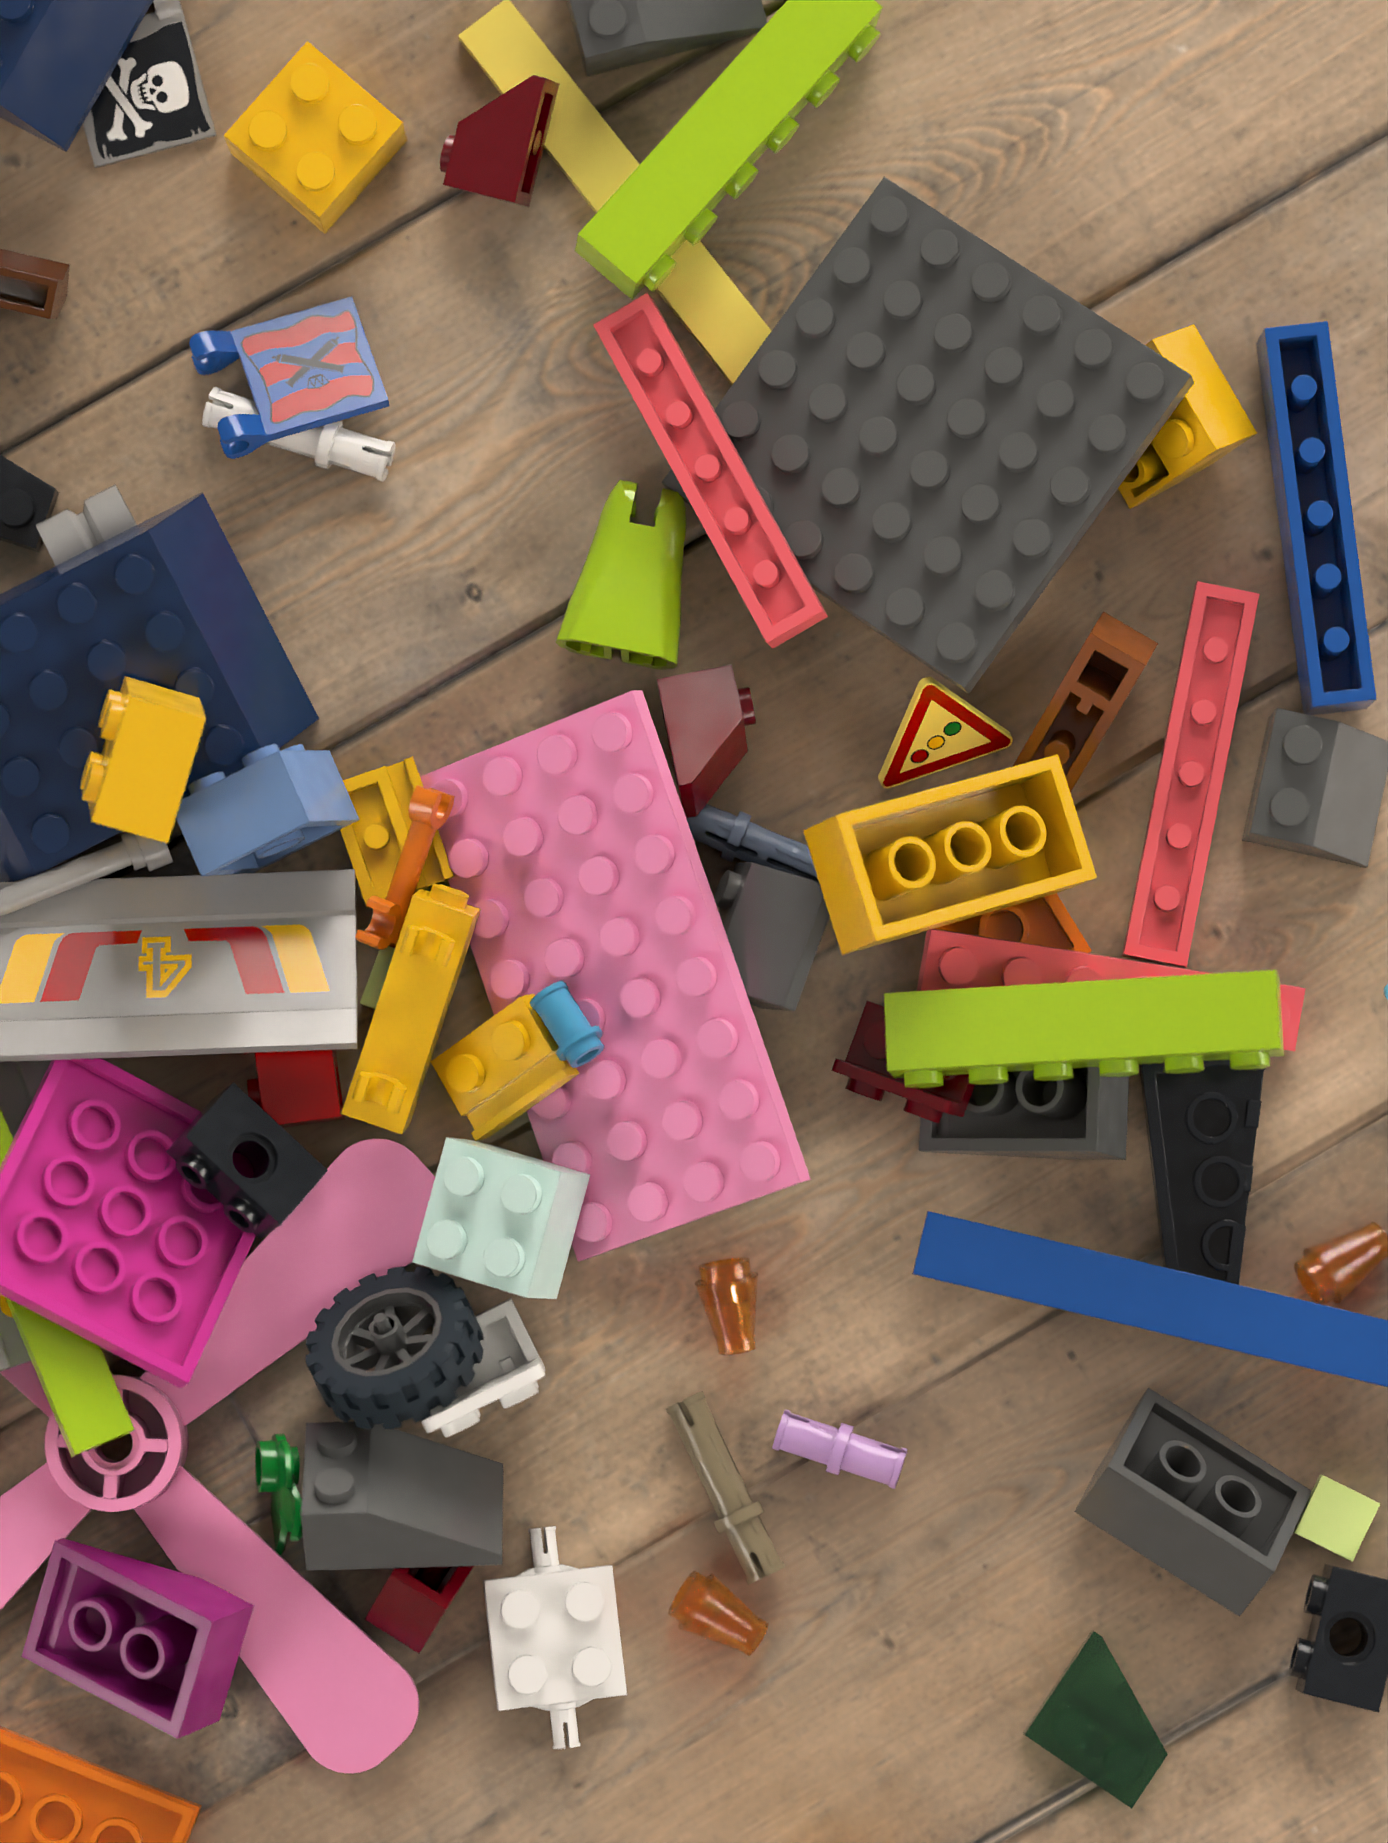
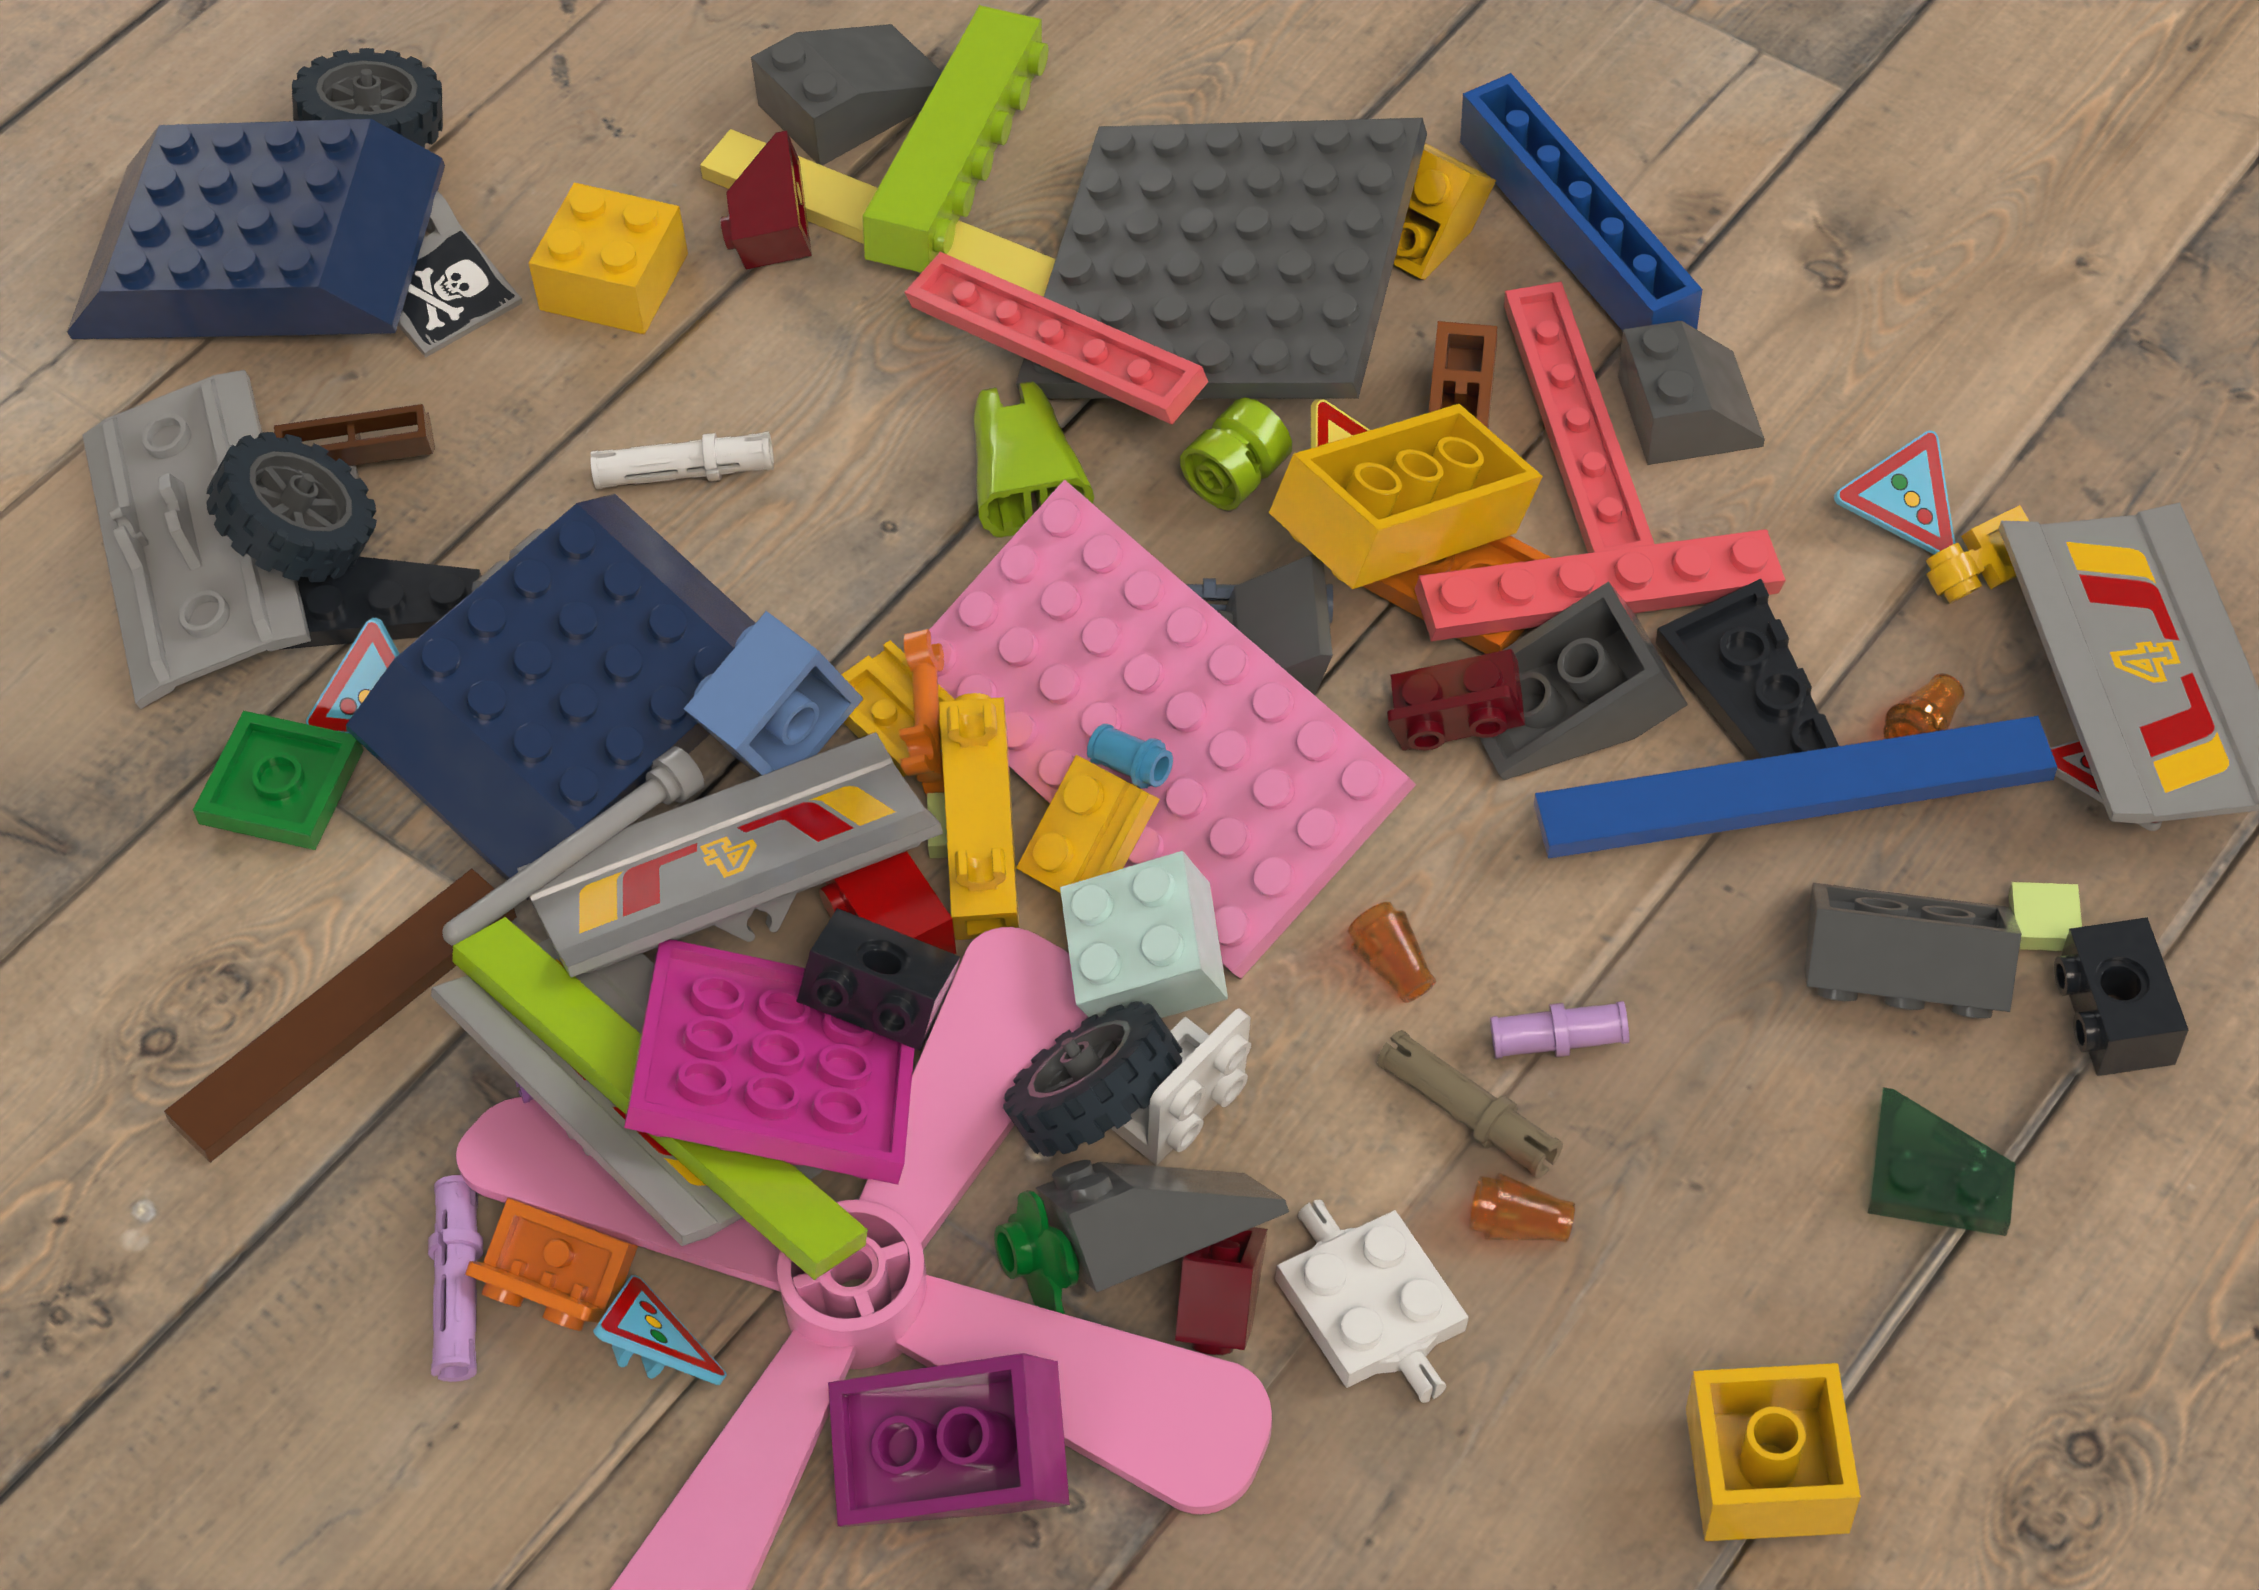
camera: 20 degrees left, 30 degrees down
(144, 758) = (642, 655): yellow brick -> none
(299, 372) = (656, 419): flag -> none
(704, 730) = (1148, 513): slope -> none
(836, 674) = (1236, 453): none -> lime wheel
(1084, 1026) = (1594, 572): lime brick -> none

